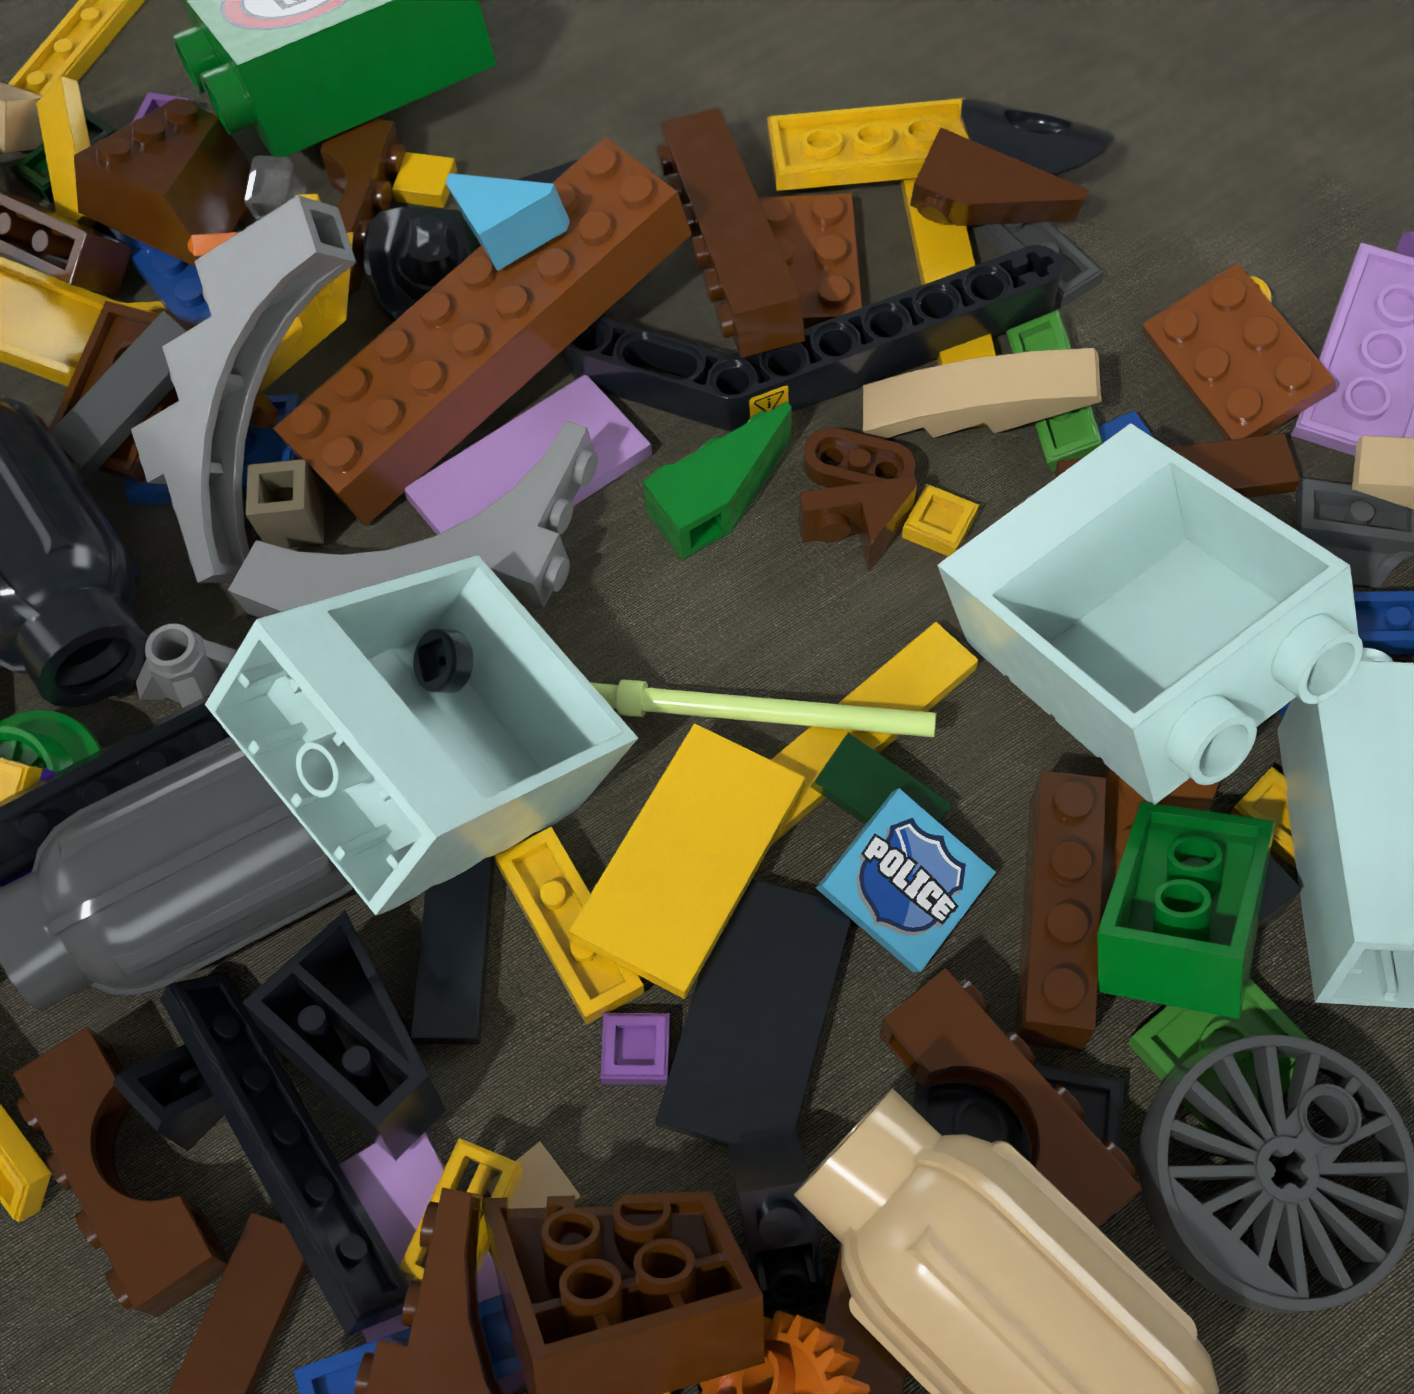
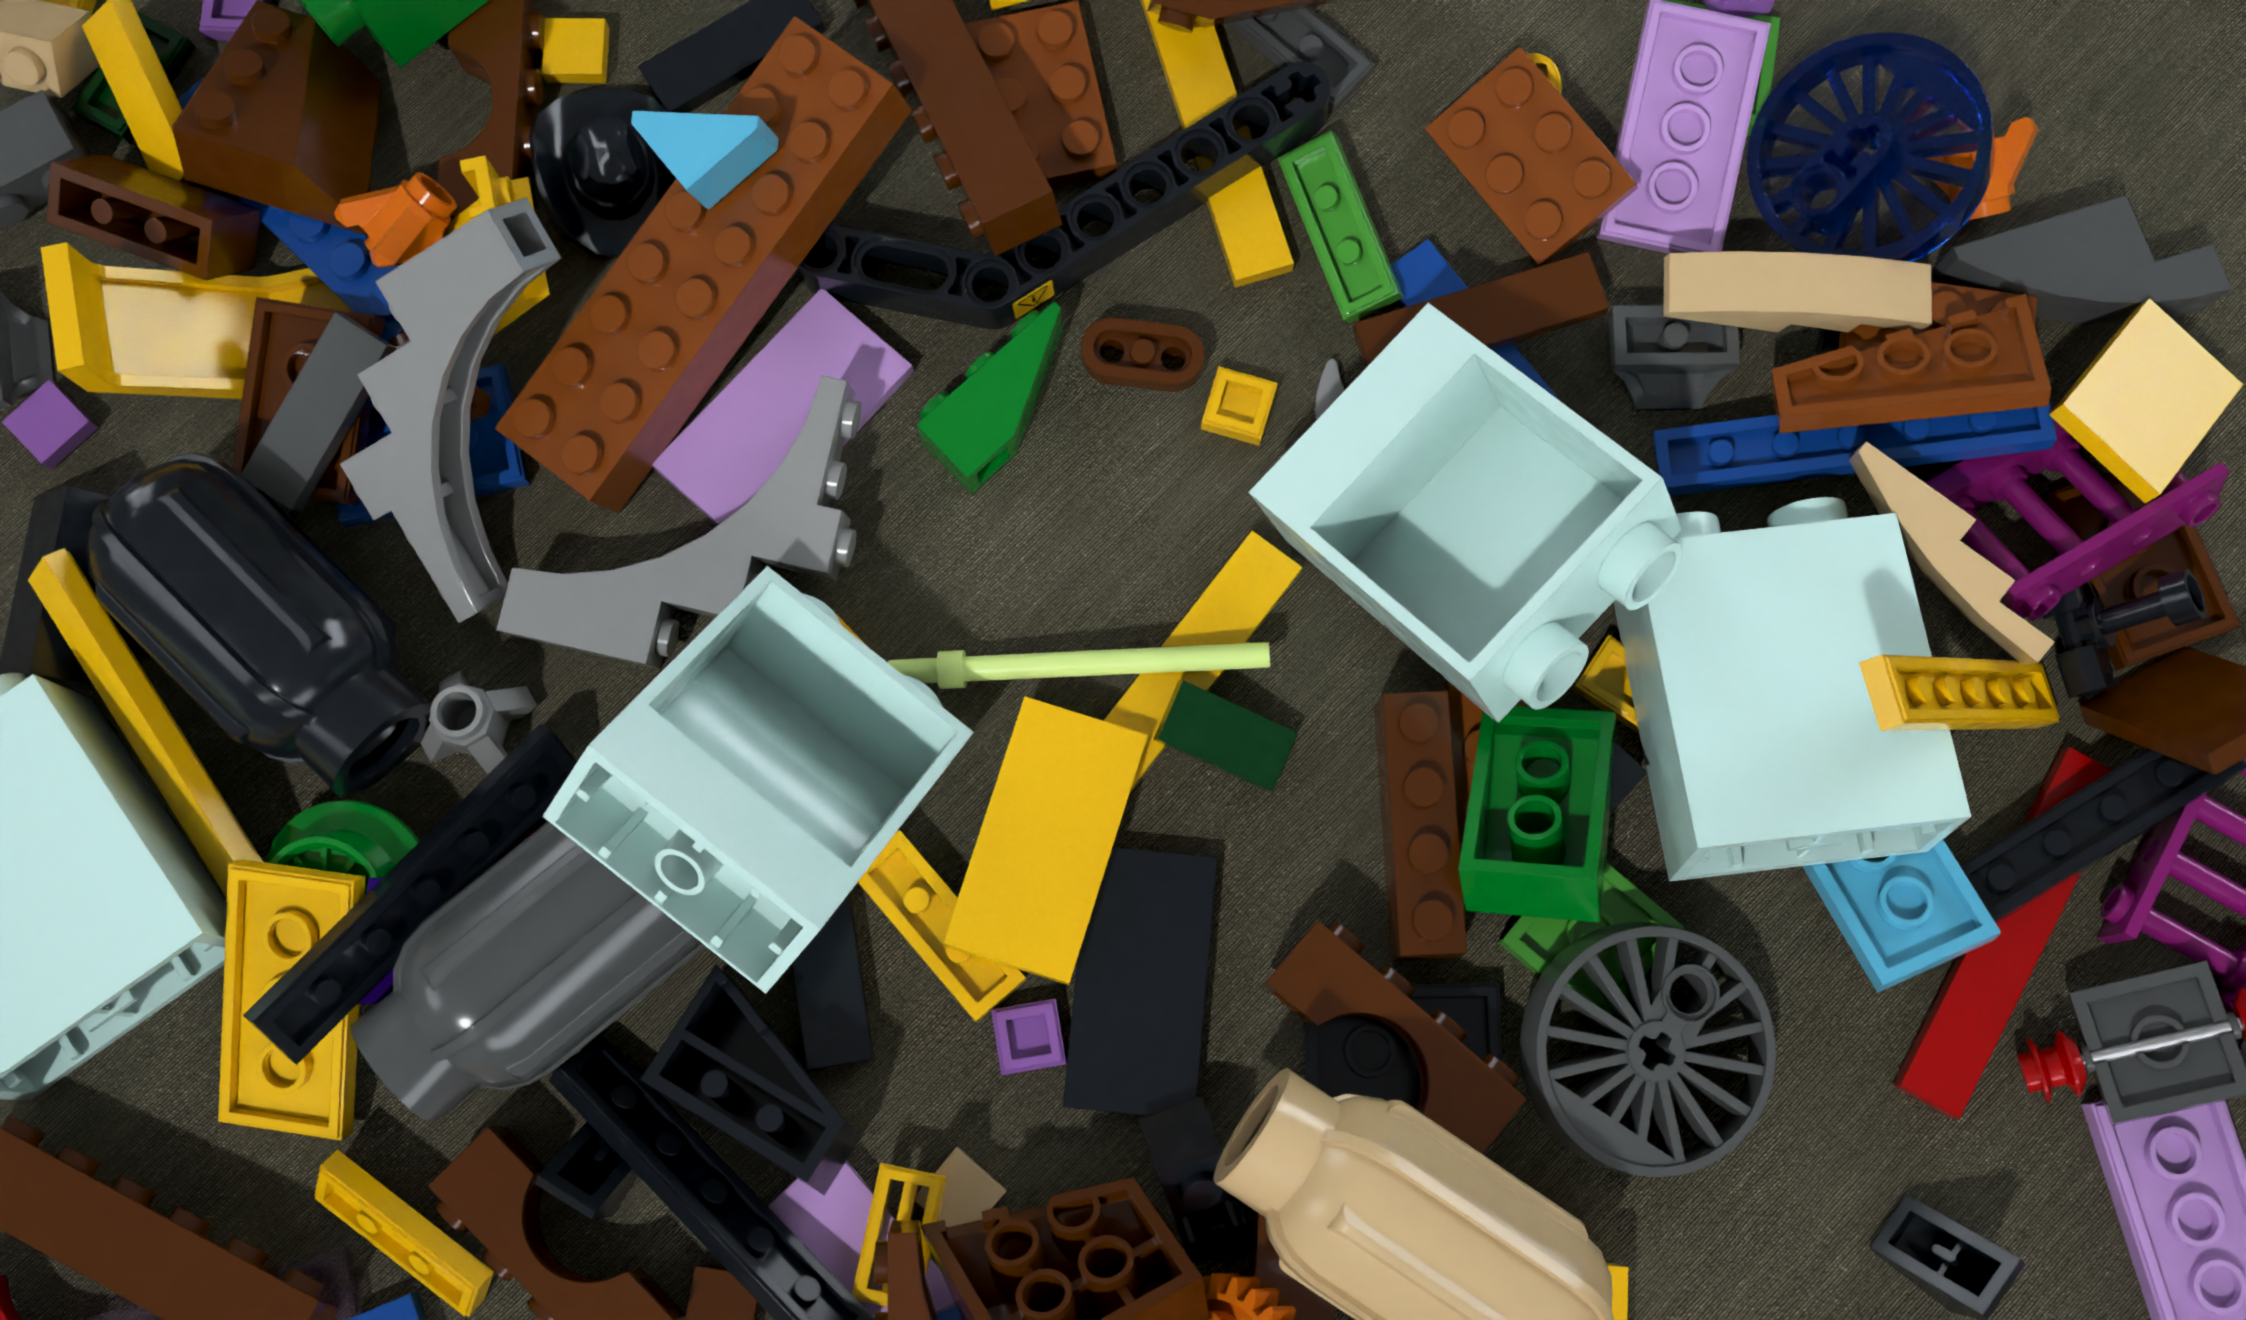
camera: 15 degrees left, 15 degrees up
(271, 184) = (406, 103): clear slope -> none
(285, 503) = (529, 512): dark tan brick -> none
(443, 661) = (756, 688): black tile -> none
(868, 508) = (1167, 411): reddish brown slope -> none
(906, 880) = (1264, 823): tile -> none
(987, 390) = (1263, 254): tan slope -> none

